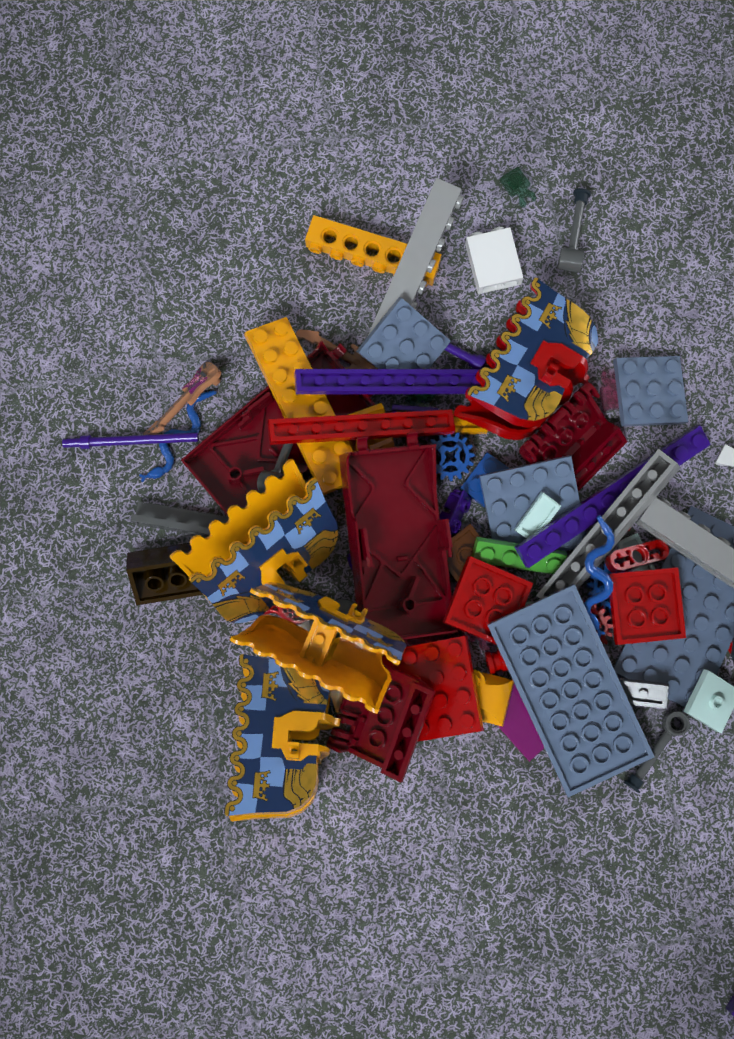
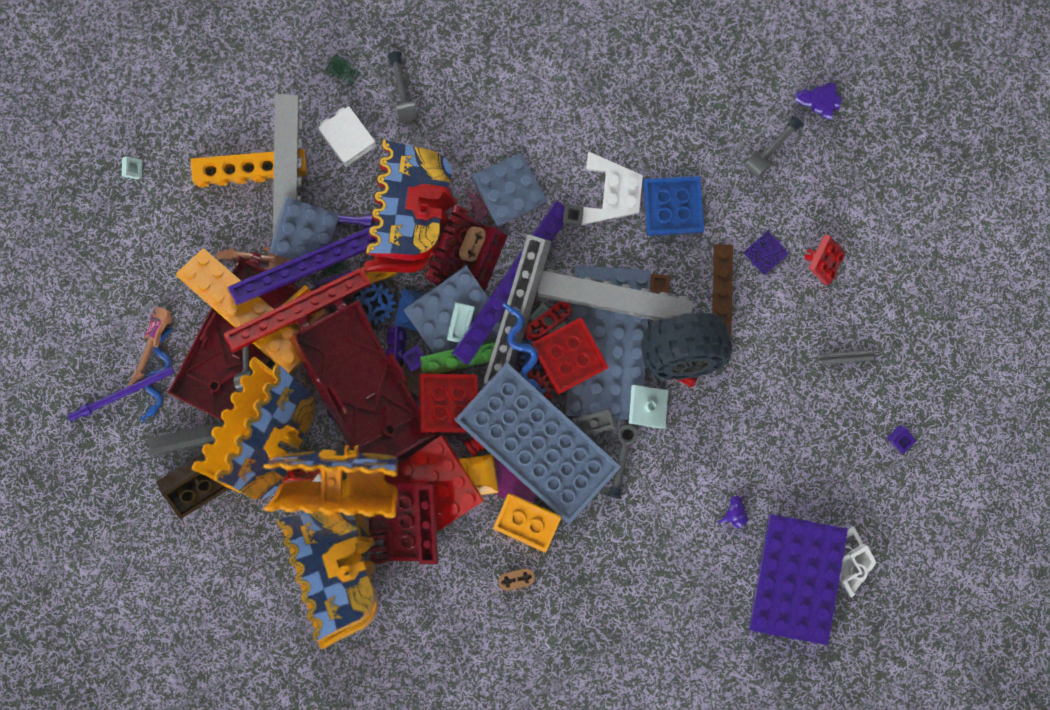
camera: 25 degrees left, 0 degrees up
(245, 200) = (132, 168): none -> light aqua plate
(467, 535) = (412, 358): none -> dark purple plate
(481, 840) = (514, 575): none -> medium nougat beam
(521, 775) = (527, 522): none -> light orange plate
(585, 434) = (472, 244): none -> medium nougat beam
(712, 449) = (573, 215): none -> dark grey slope

